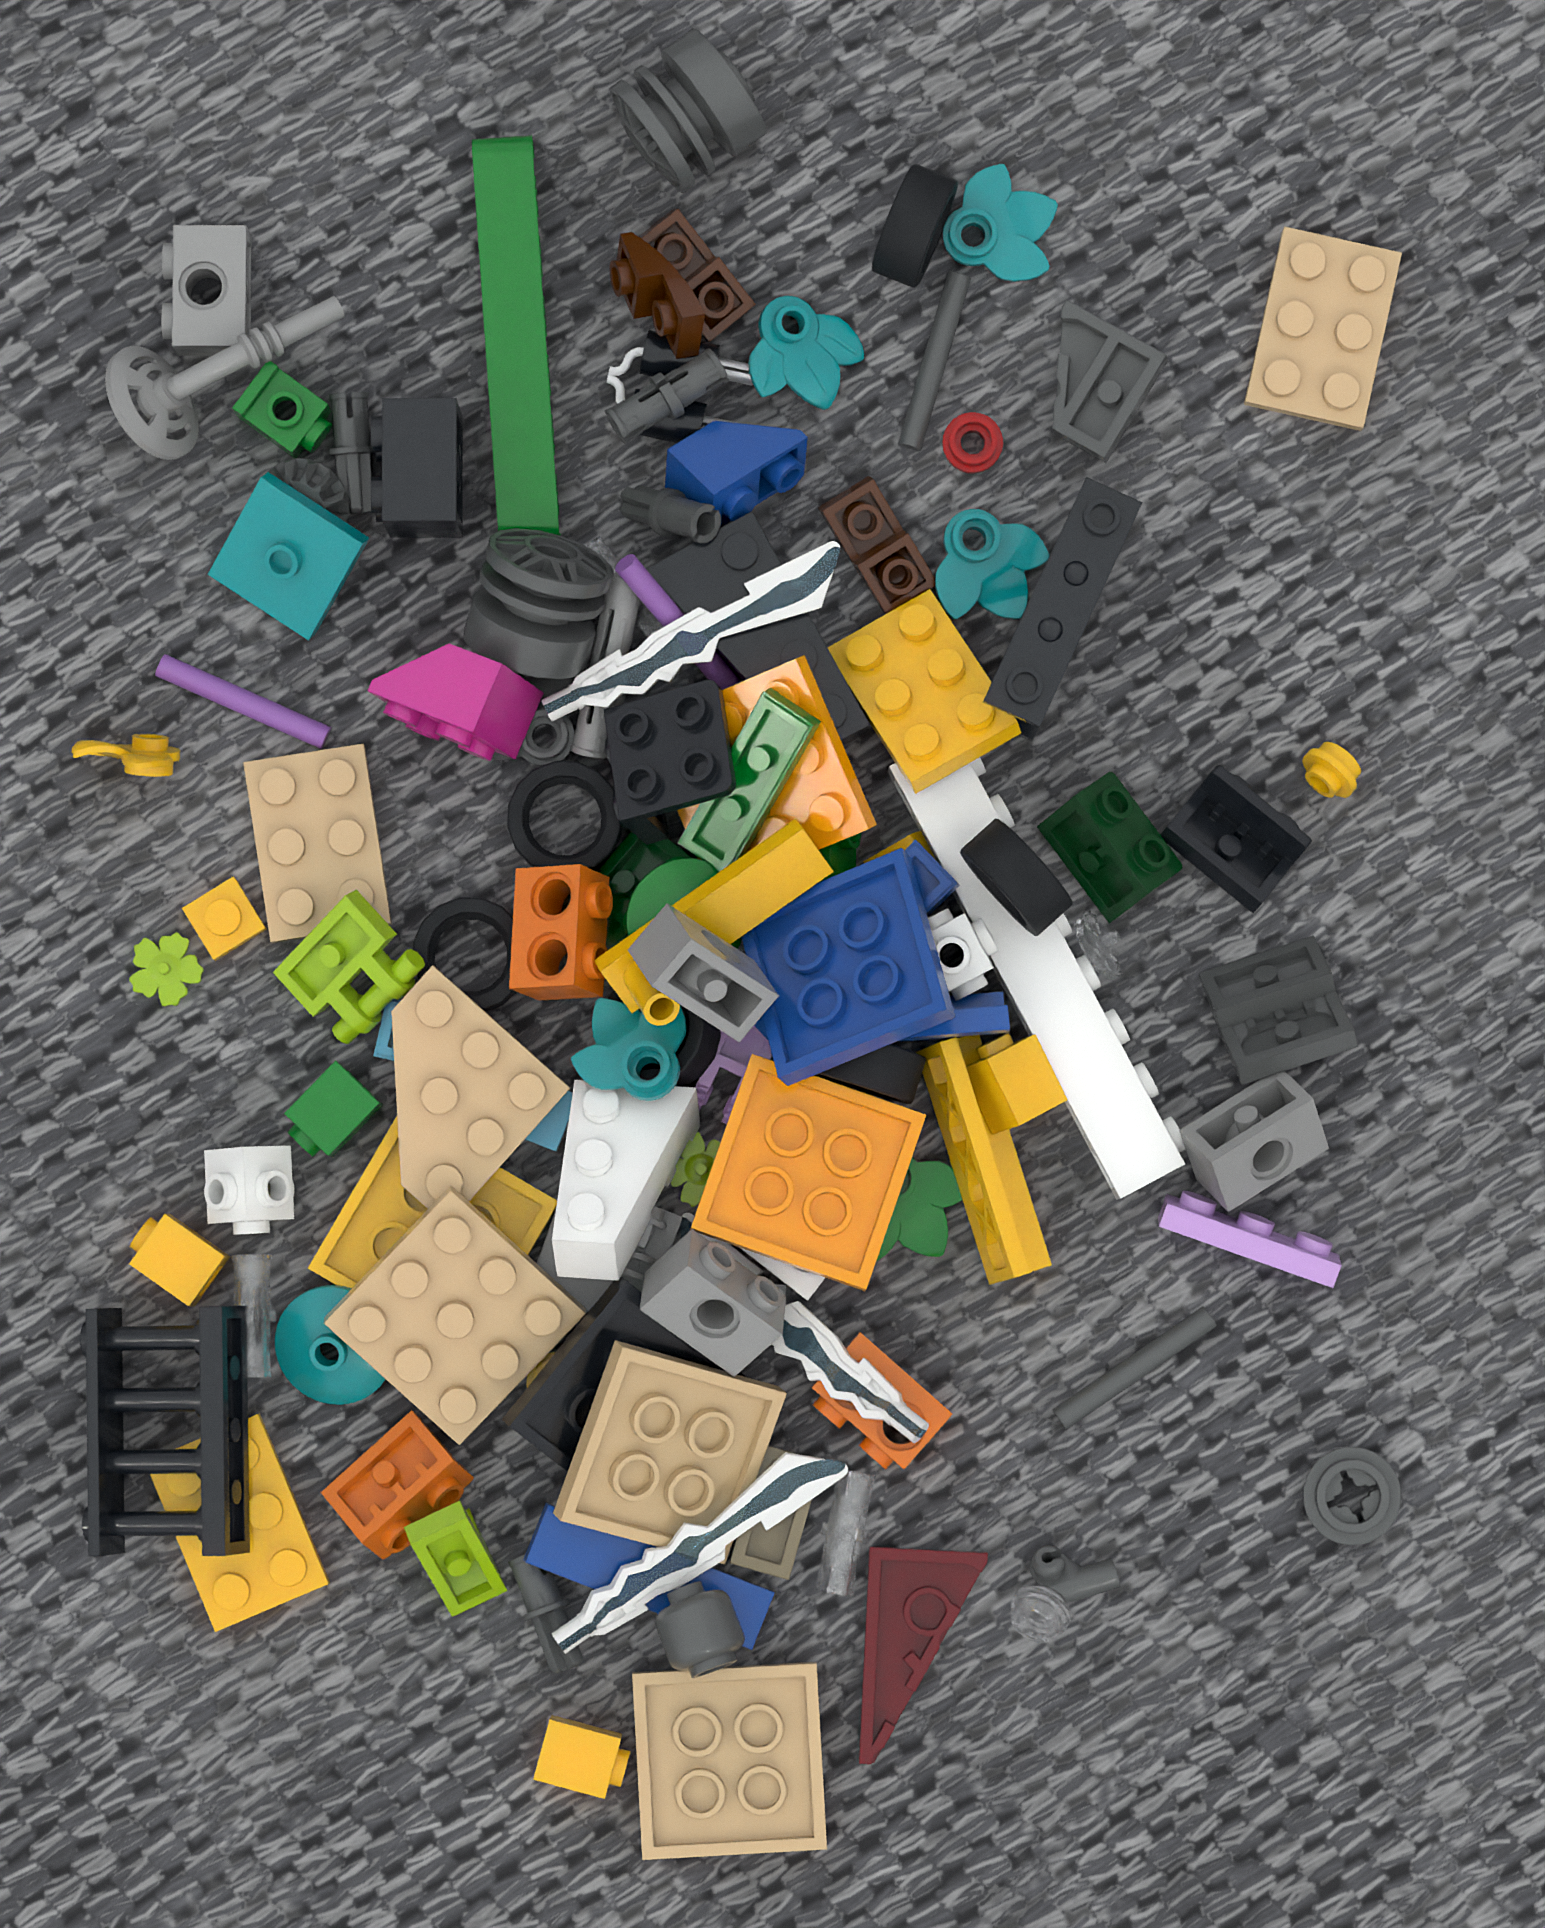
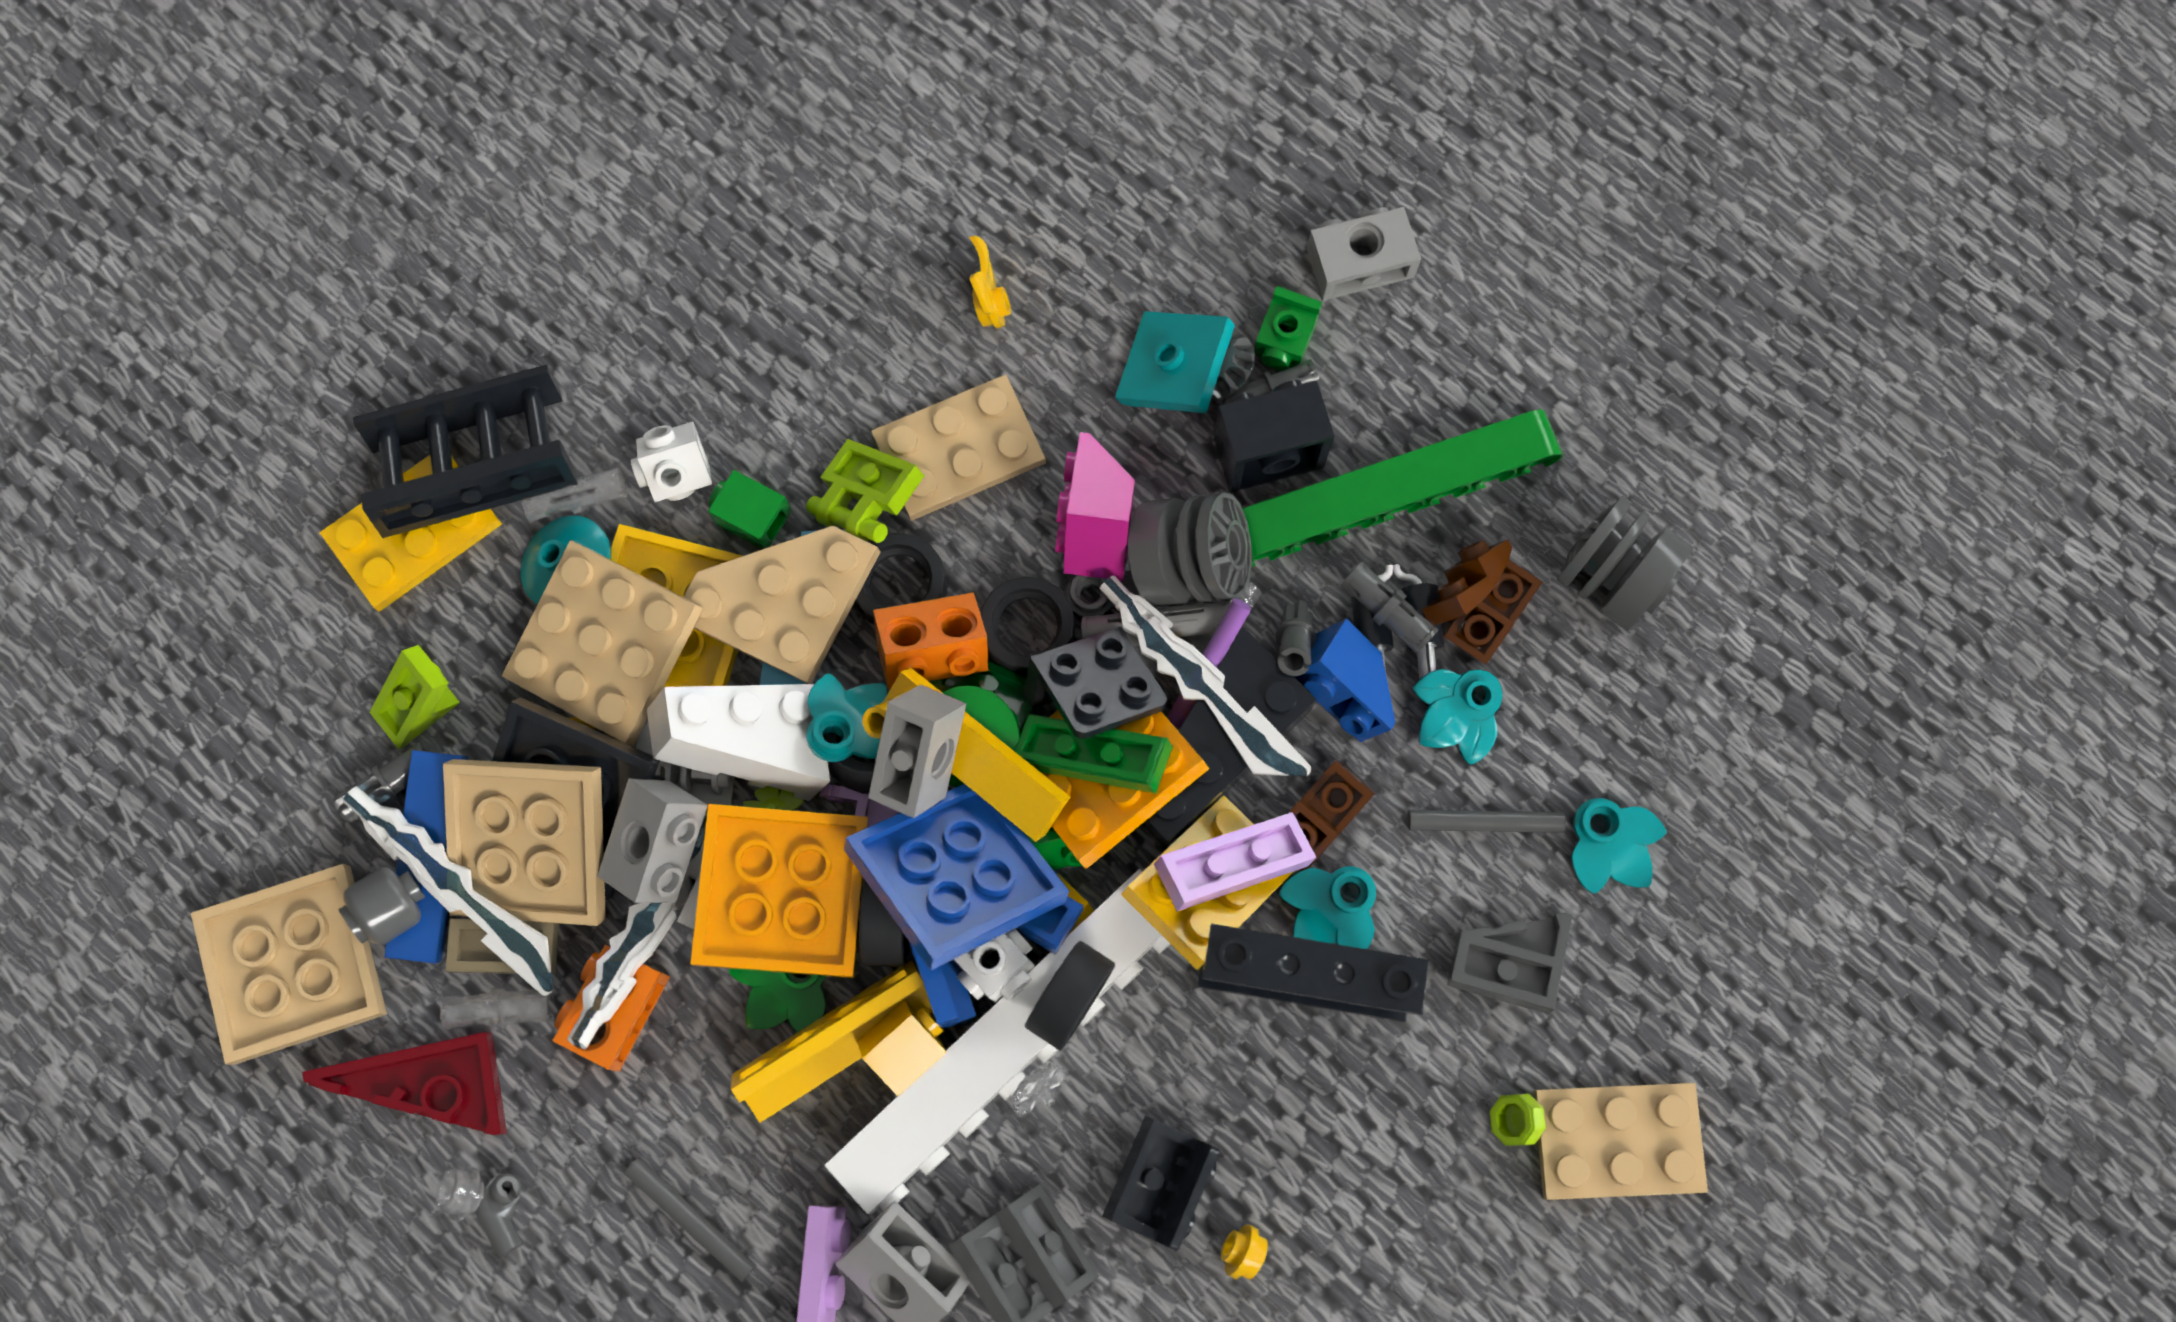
camera: 80 degrees right, 10 degrees down
(165, 969) = (832, 363): lime plant -> none
(174, 390) = (1282, 239): light grey dish -> none
(177, 1258) = (604, 426): yellow brick -> none
(224, 918) = (881, 394): yellow plate -> none
(242, 701) = (1054, 364): medium lavender bar -> none
(397, 1484) = (461, 638): orange bracket -> none
(581, 1757) = (267, 840): yellow brick -> none
(914, 225) = (1593, 768): black tyre -> none
(914, 656) = (1234, 861): none -> lavender plate
(972, 423) = (1436, 855): red plate -> none
(1110, 846) = (1126, 1076): dark green bracket -> none
(1271, 432) = (1517, 1119): none -> lime tile

